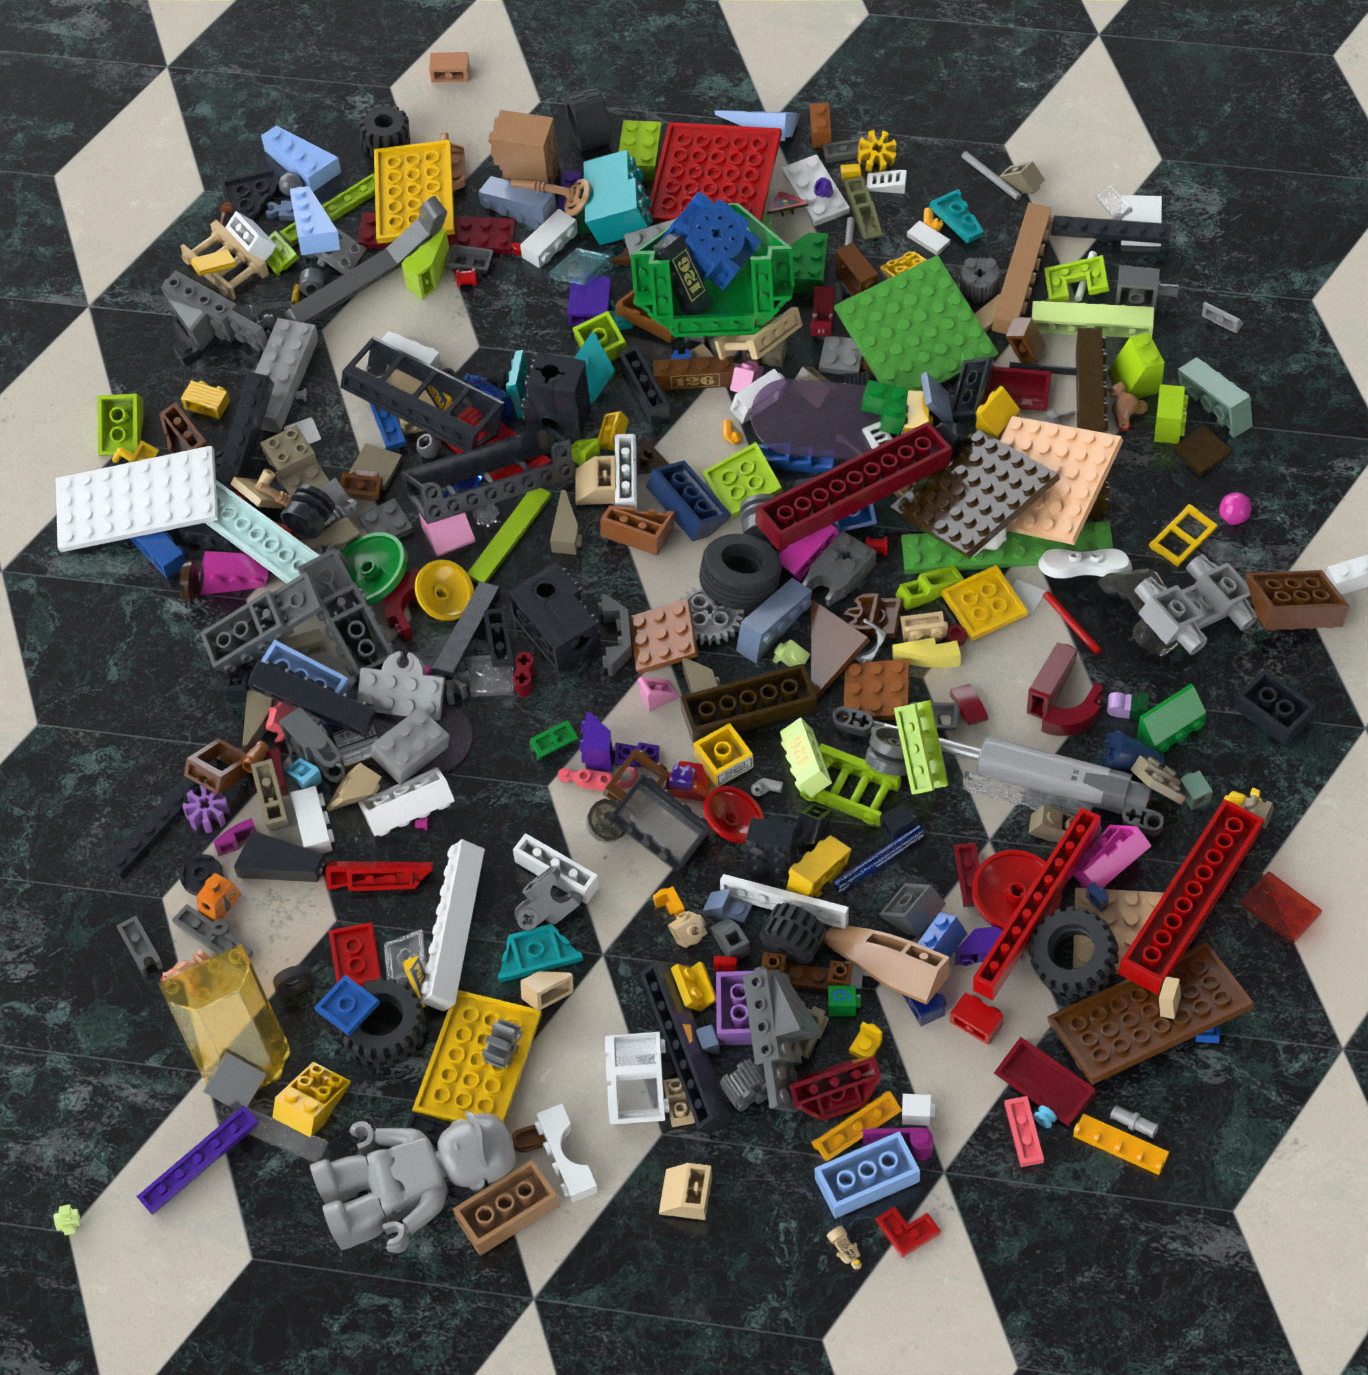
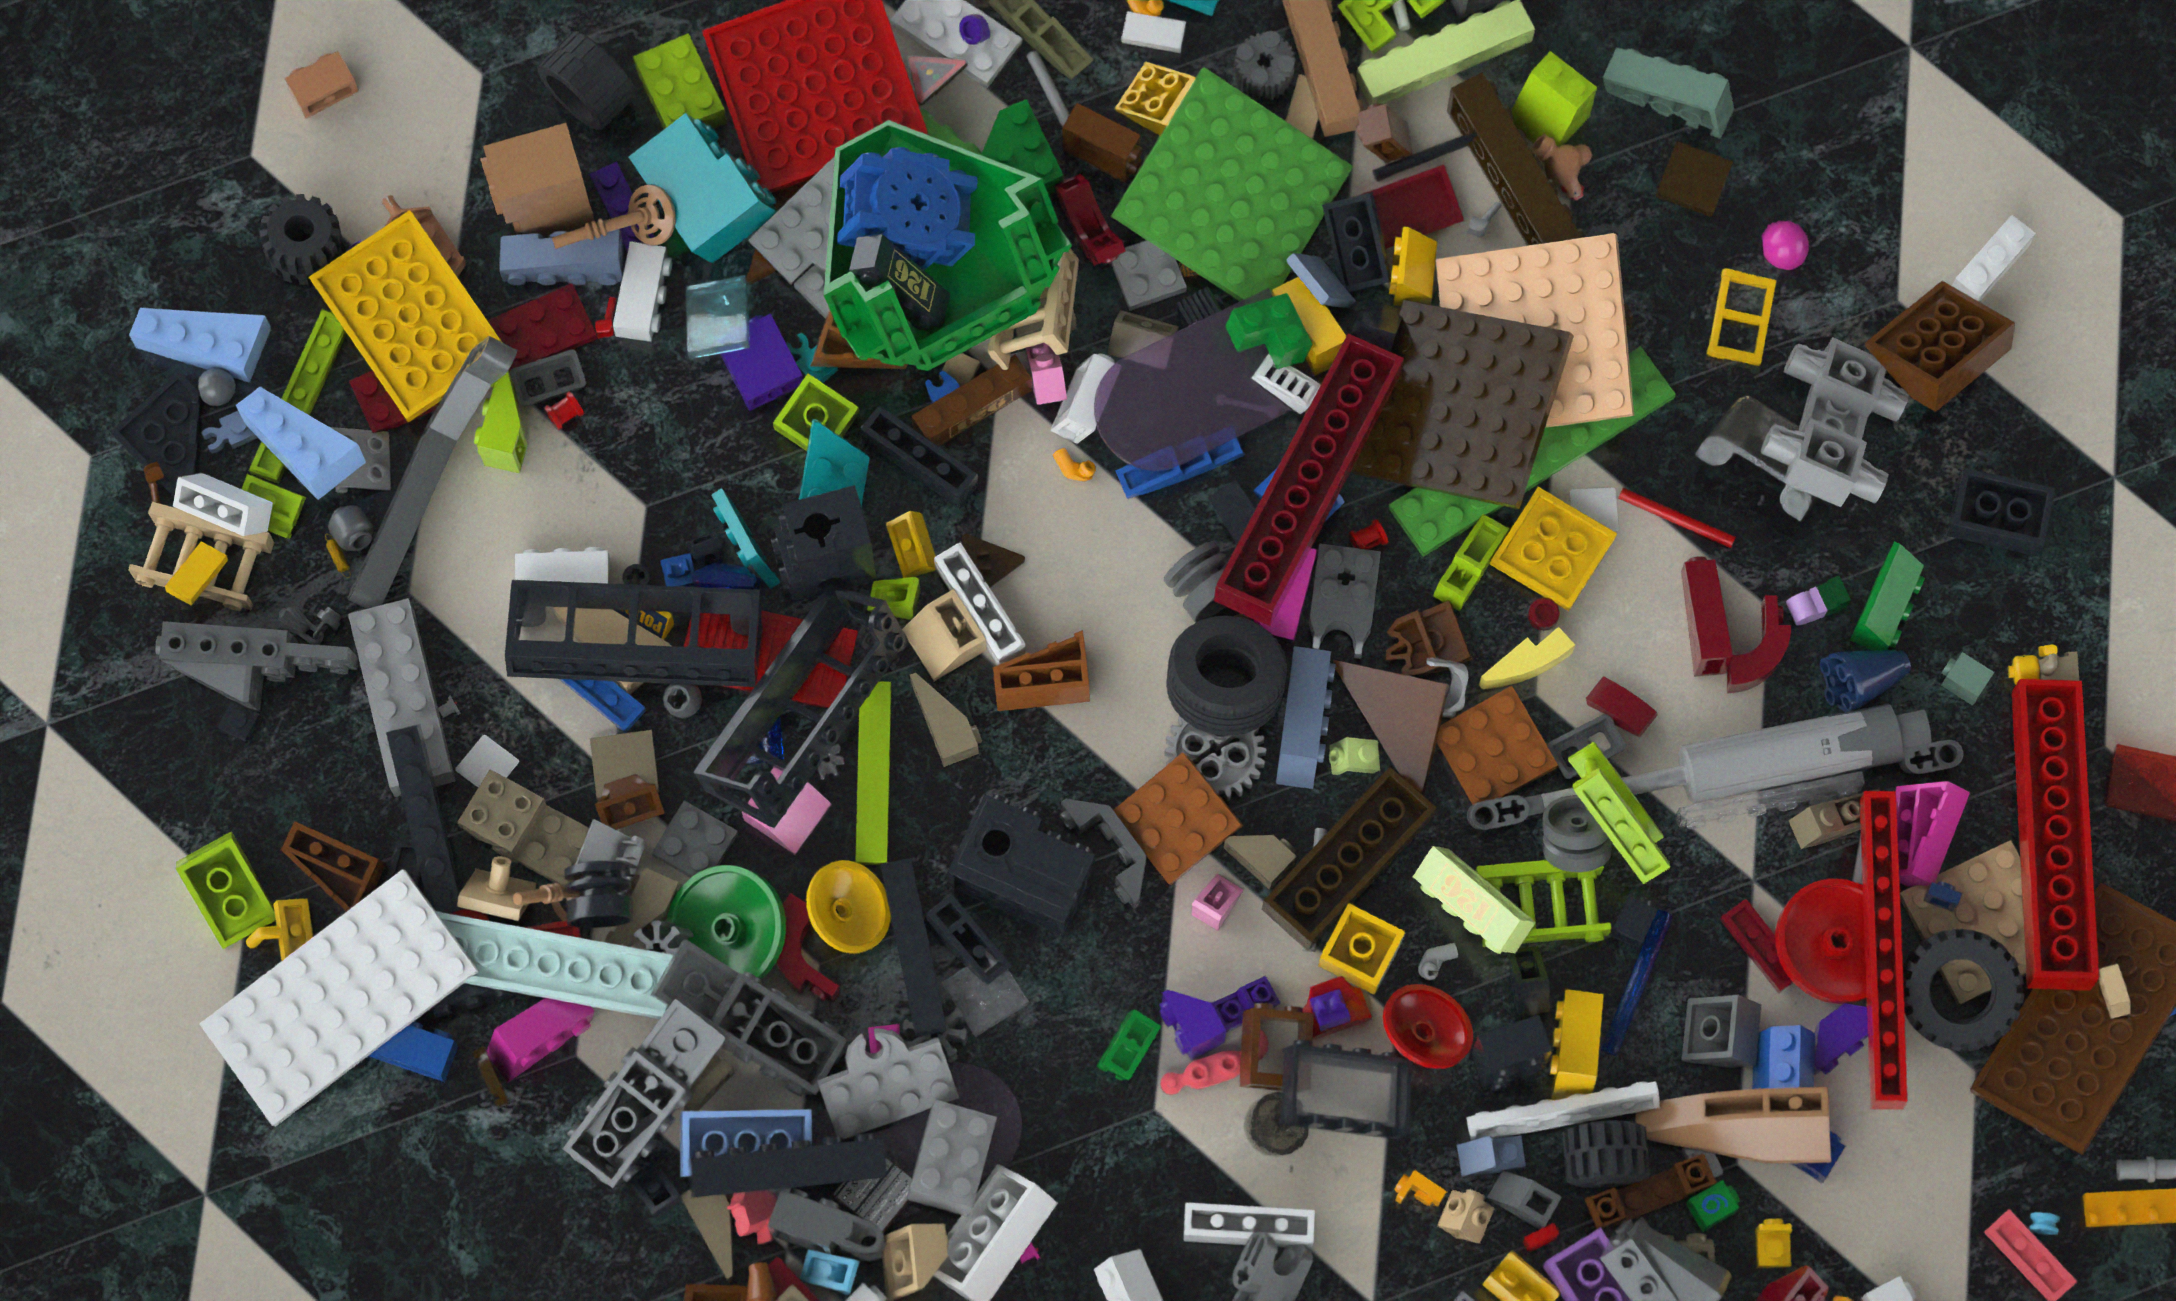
camera: 35 degrees left, 15 degrees up
(205, 399) = (321, 786): yellow brick -> none
(523, 676) = (1027, 970): dark red axle -> none
(694, 504) = (1084, 598): dark blue slope -> none
(741, 477) = (1138, 534): lime plate -> none
(924, 627) = (1501, 626): tan bracket -> none
(976, 1018) = (1887, 1137): red brick -> none
(1045, 1081) = (2016, 1176): dark red slope -> none
(1068, 563) = (1638, 442): white plate -> none
(1158, 778) = (1924, 693): dark tan plate -> none
(1170, 414) = (1632, 151): lime brick -> none

